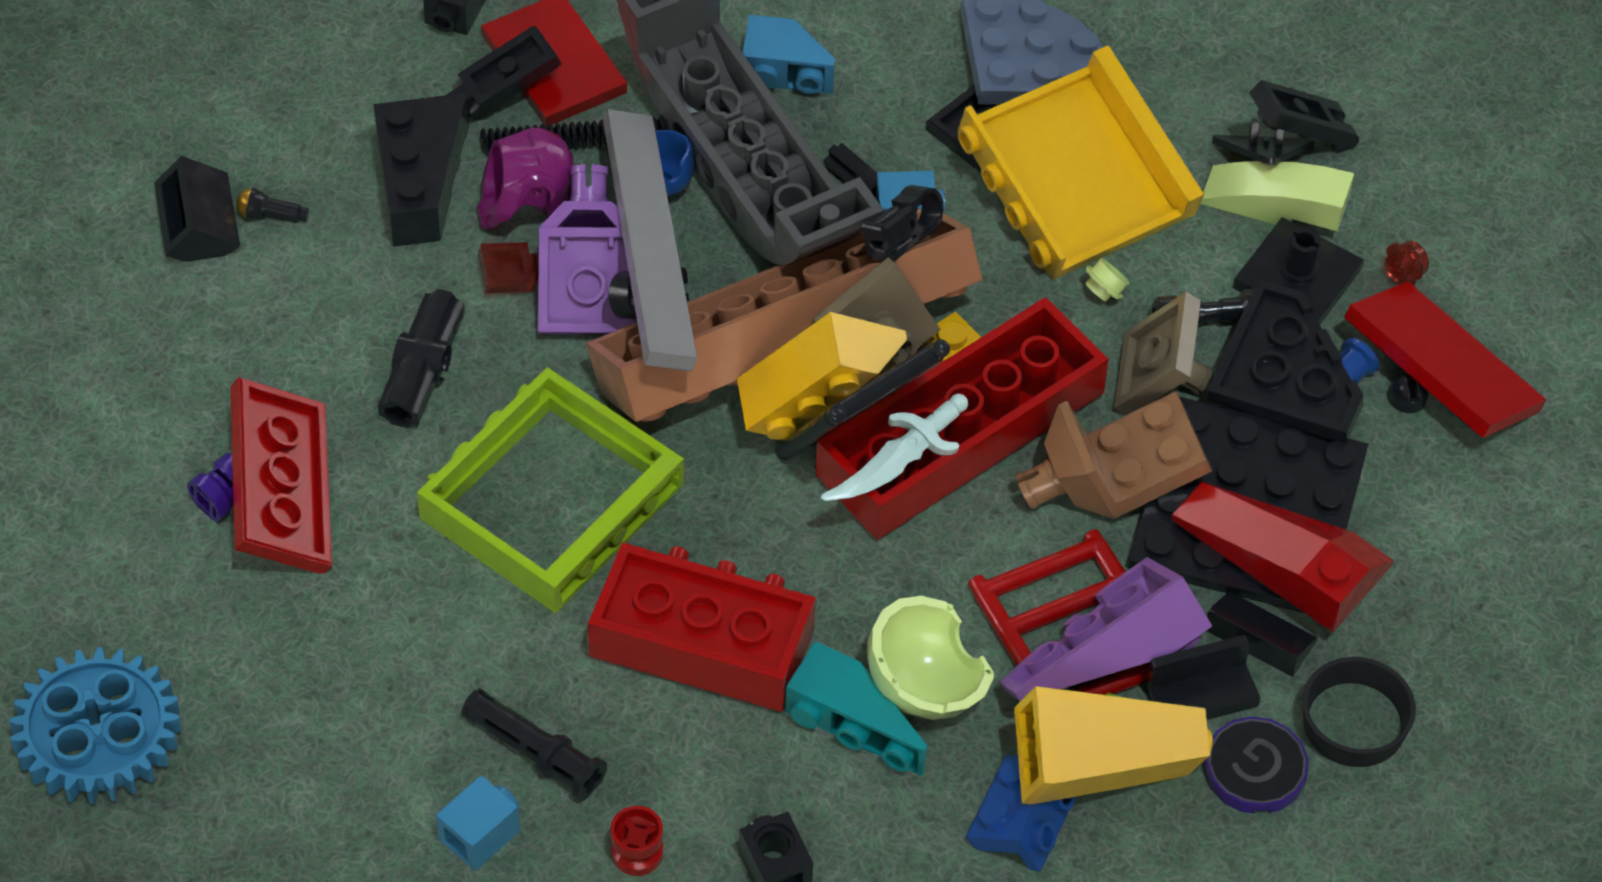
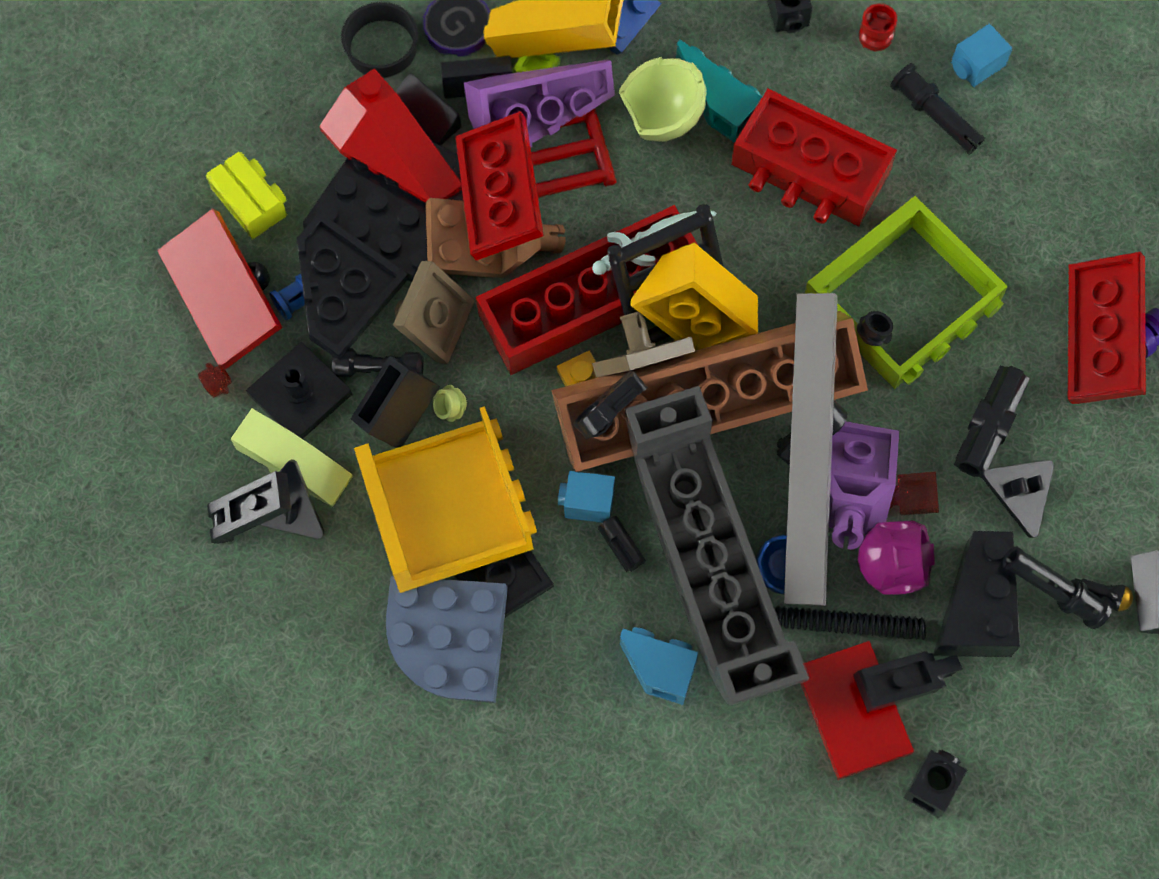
camera: 165 degrees left, 15 degrees up
(314, 175) = (1070, 594): none -> black pin
(376, 293) = (1022, 491): none -> piece
(576, 395) = (875, 328): none -> black plate
(1119, 474) = (498, 186): none -> red tile
(1174, 256) = (394, 402): none -> black brick
(1457, 476) = (247, 195): none -> neon yellow brick

